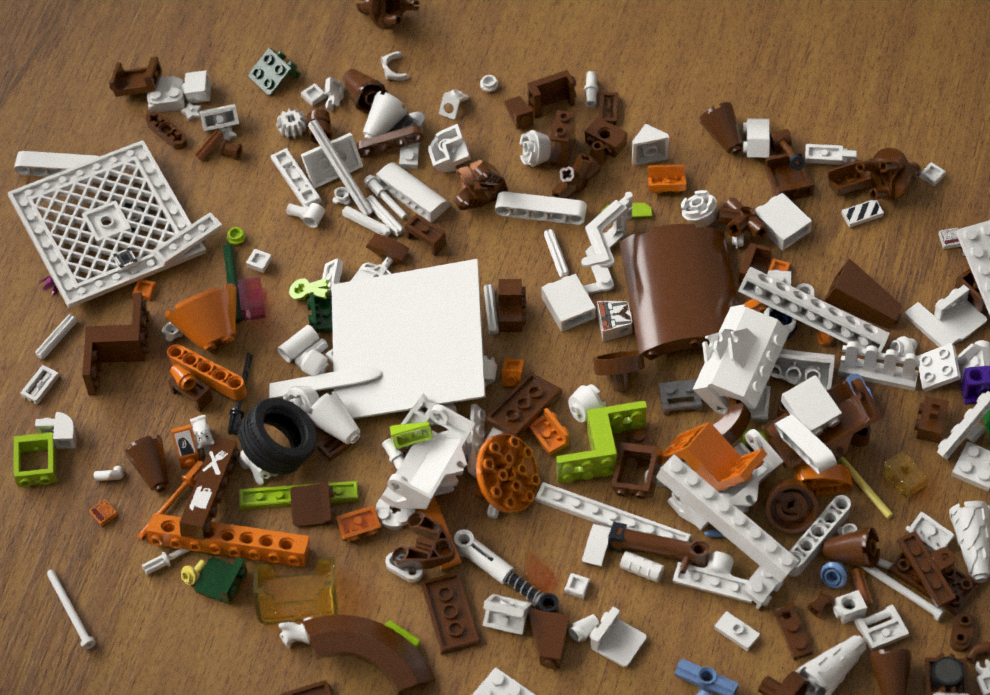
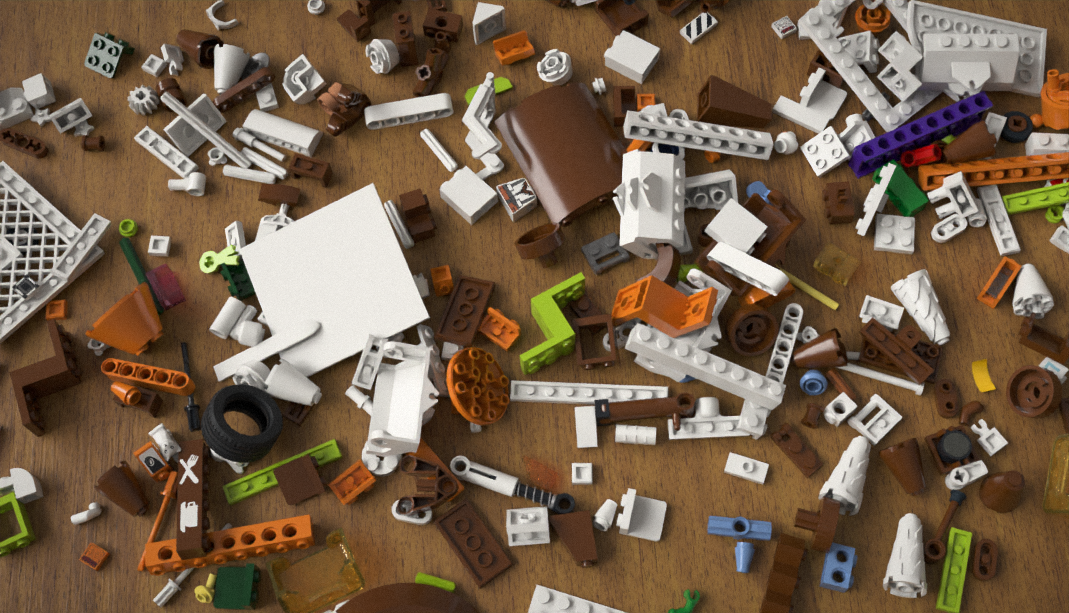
camera: 20 degrees left, 10 degrees up
(209, 144) = (70, 145): dark orange axle -> none
(400, 432) = (370, 376): lime slope -> none
(453, 97) = (289, 29): white bracket -> none
(583, 399) = (522, 289): white cone -> none
(740, 219) = (596, 67): reddish brown piece -> none
(877, 372) = (770, 172): white fence -> none

